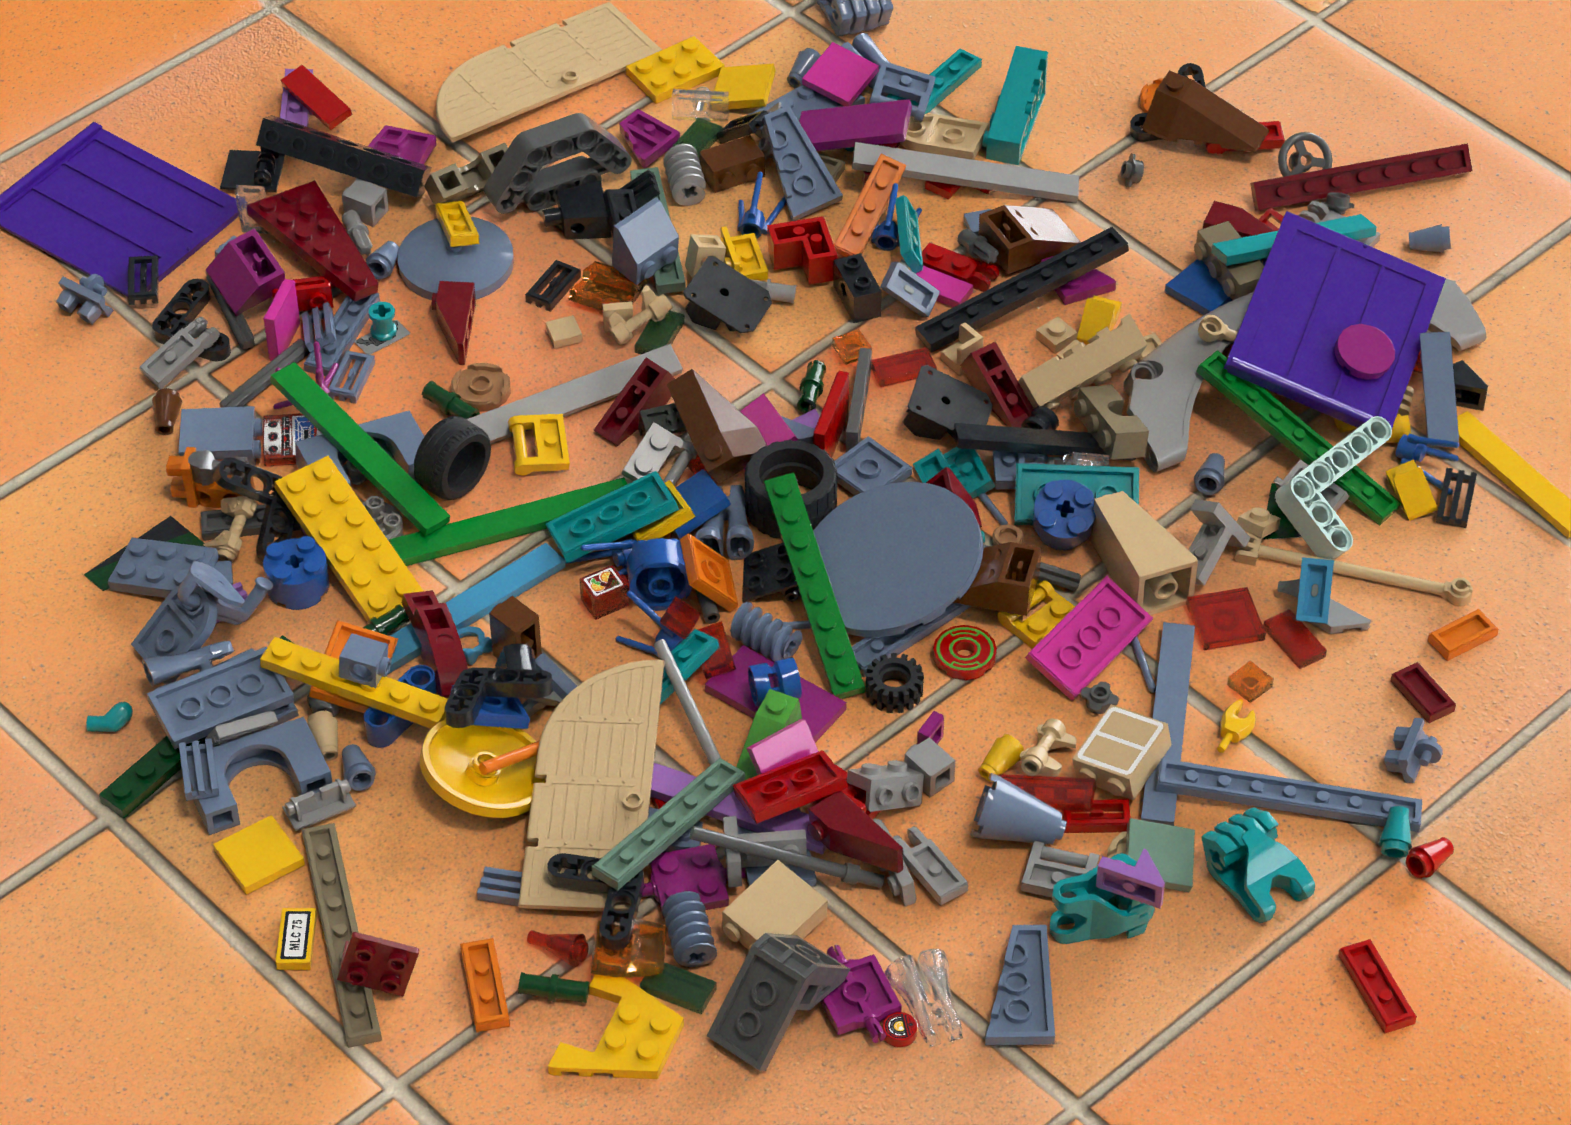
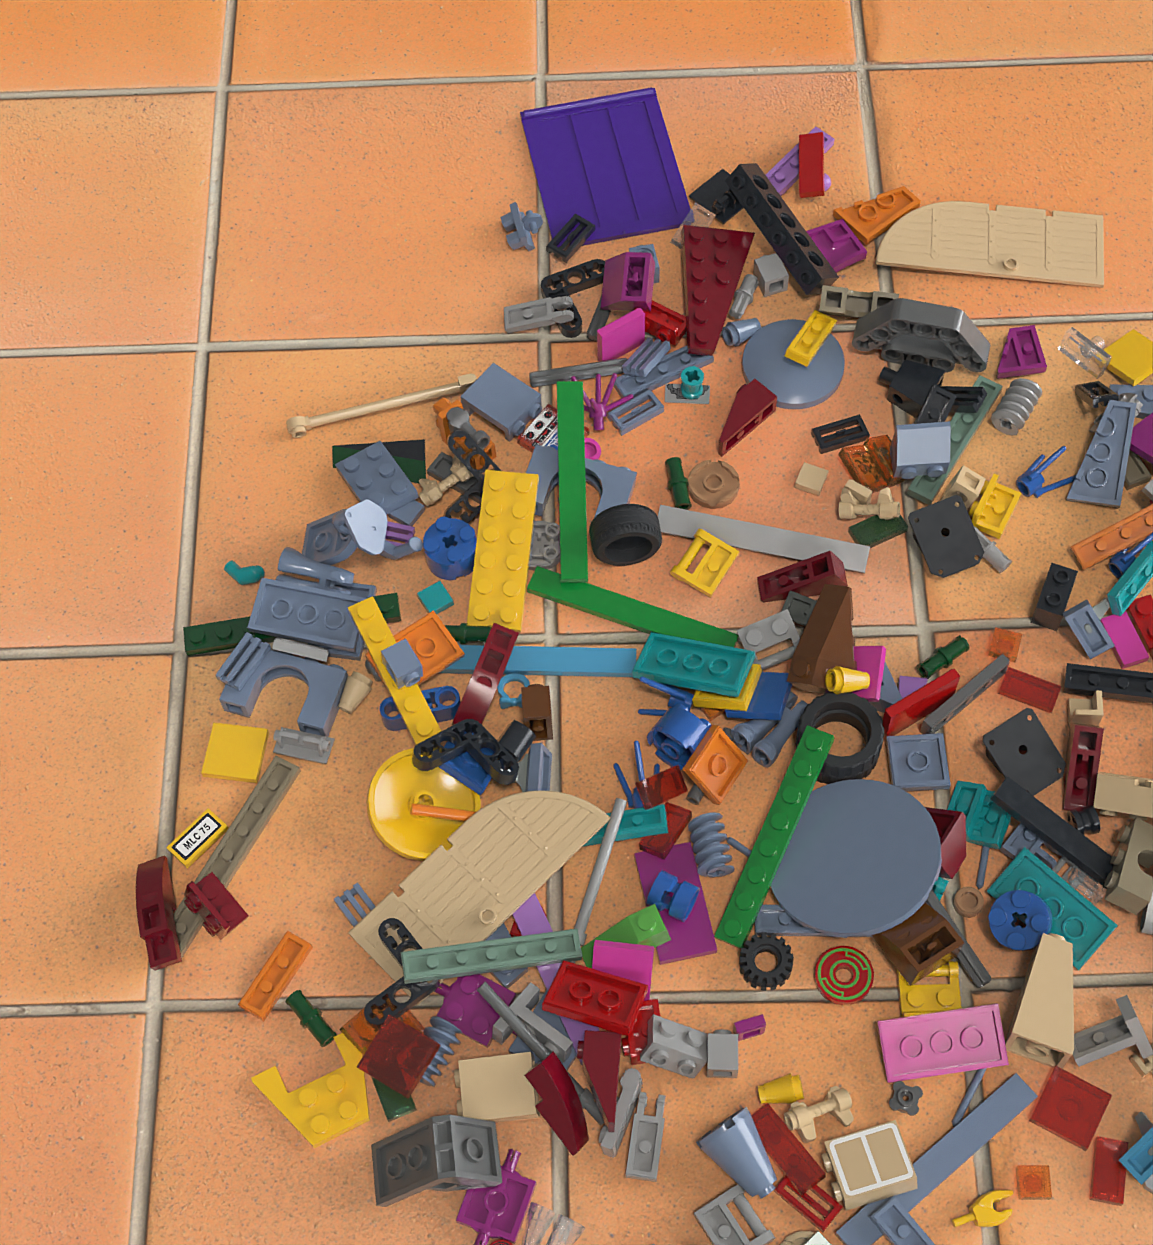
camera: 45 degrees right, 15 degrees up
(36, 574) = (299, 425): none -> tan hinge
(166, 409) = (492, 352): reddish brown cone -> none
(319, 623) = (435, 598): none -> teal tile
(328, 1005) = (155, 913): none -> dark red slope
(357, 768) = (350, 735): sand blue cone -> none
(412, 105) = (877, 215): none -> orange wing
(567, 947) = (348, 993): clear red cone -> none
(604, 592) = (635, 721): clear red brick -> none
(670, 941) = (398, 1056): none -> clear red tile
(674, 67) = (1098, 307): yellow plate -> none
(700, 135) = (1058, 379): clear green tile -> none
(732, 163) = (1061, 420): reddish brown brick -> none
(759, 434) = (845, 680): none -> yellow cone
(768, 573) = (759, 793): black hinge -> none
(805, 245) = (1047, 530): red brick -> none
(835, 879) = (559, 1102): none -> dark red slope

